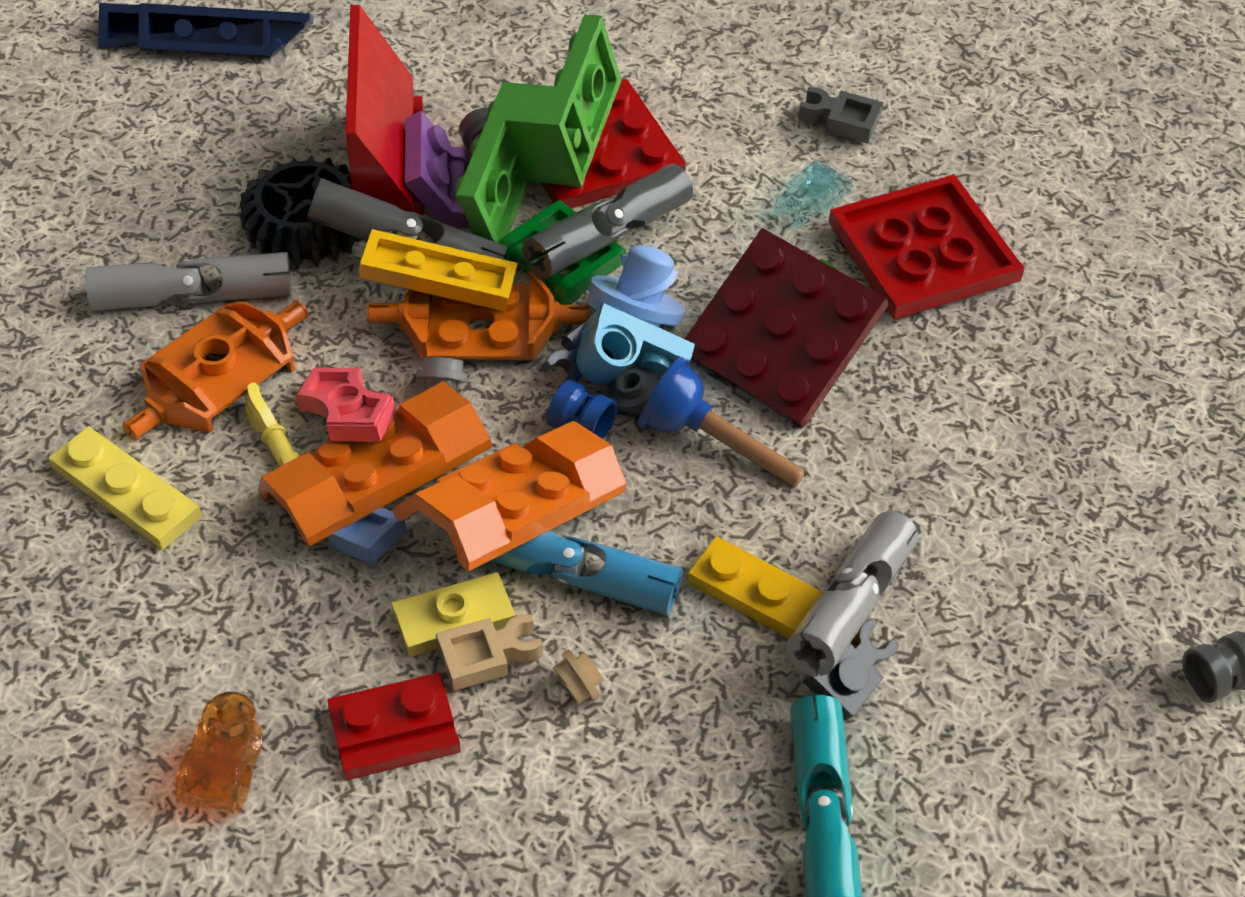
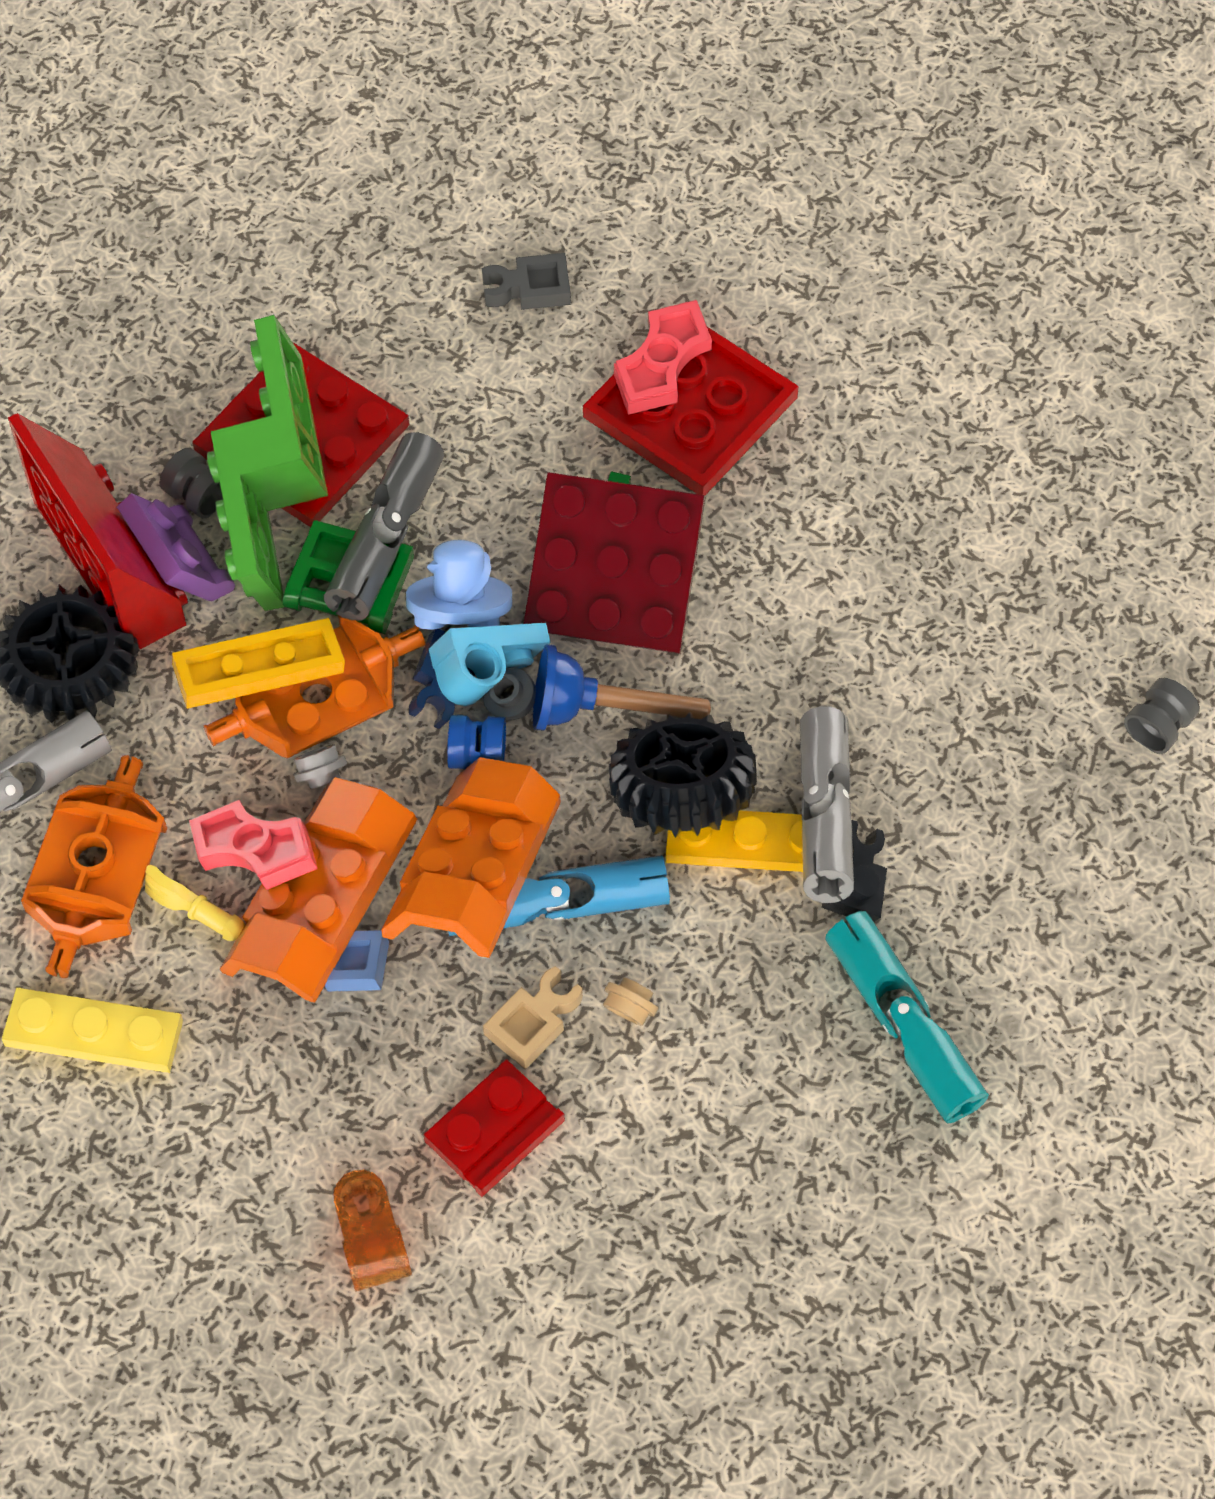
camera: 25 degrees left, 10 degrees up
(360, 213) = (155, 637): dark grey piece -> none
(451, 607) = (476, 997): light yellow plate -> none
(739, 511) = (682, 774): none -> black gear
(813, 188) = (549, 385): clear light blue plate -> none
(905, 205) = (651, 373): none -> coral tile

